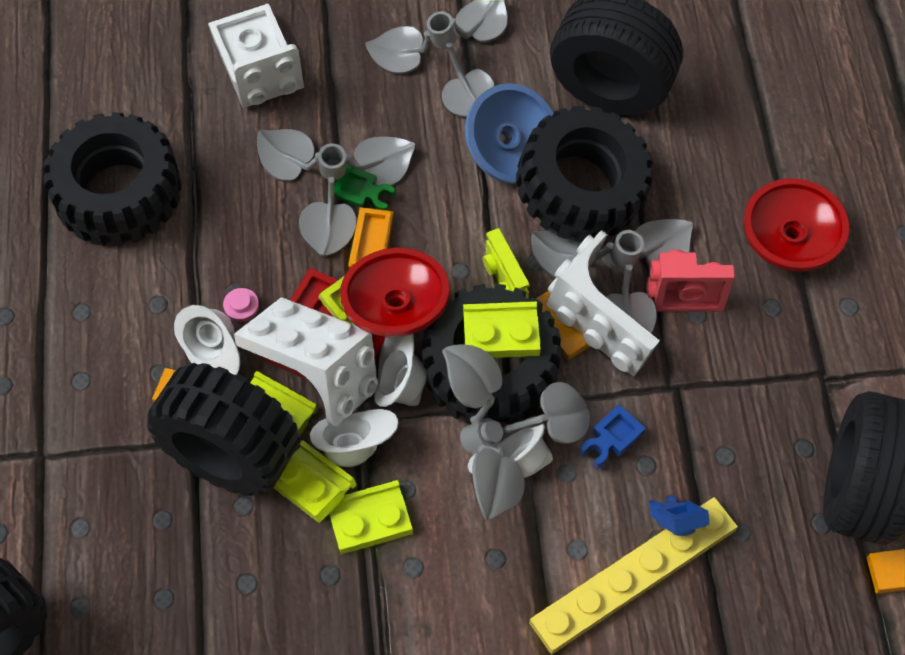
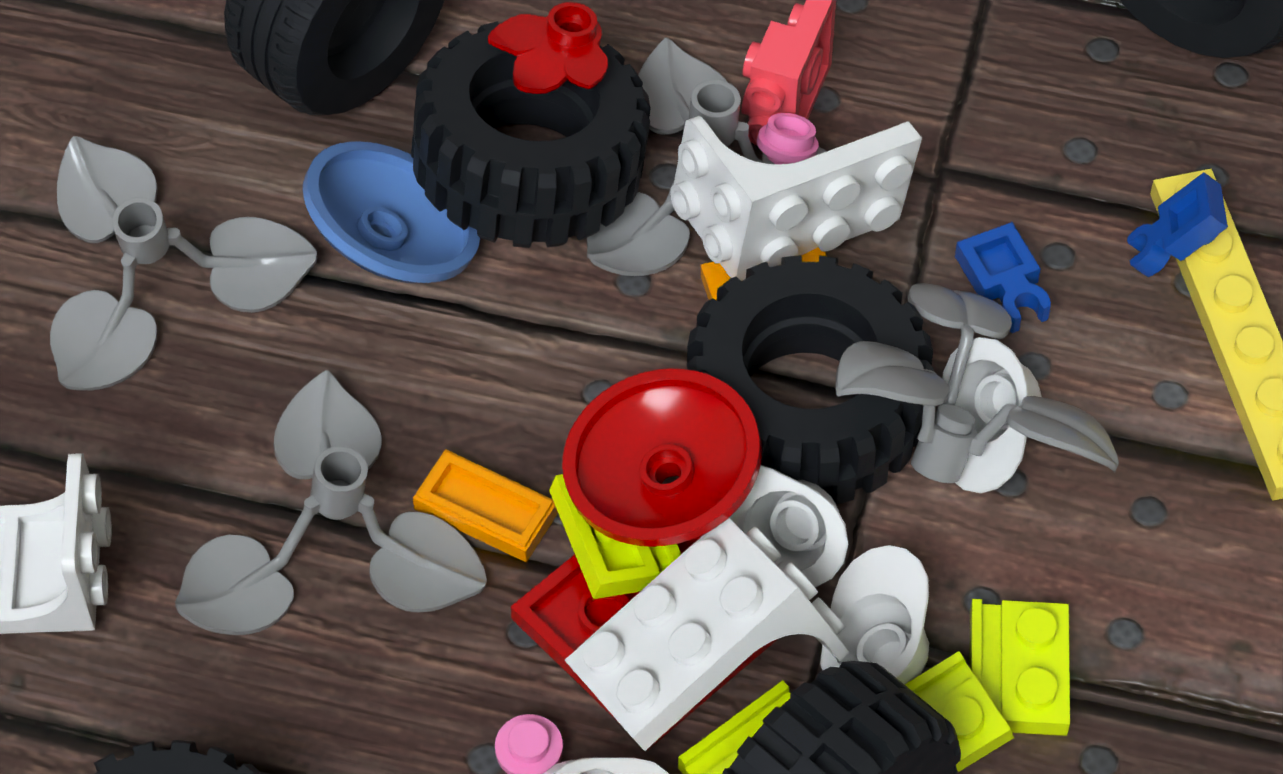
camera: 70 degrees left, 5 degrees down
(359, 186) = (389, 476): green plate -> none
(502, 263) = (647, 309): neon yellow plate -> none
(503, 328) = (801, 326): neon yellow plate -> none
(619, 155) = (553, 48): none -> red plate
(637, 295) = (787, 139): none -> bright pink plate

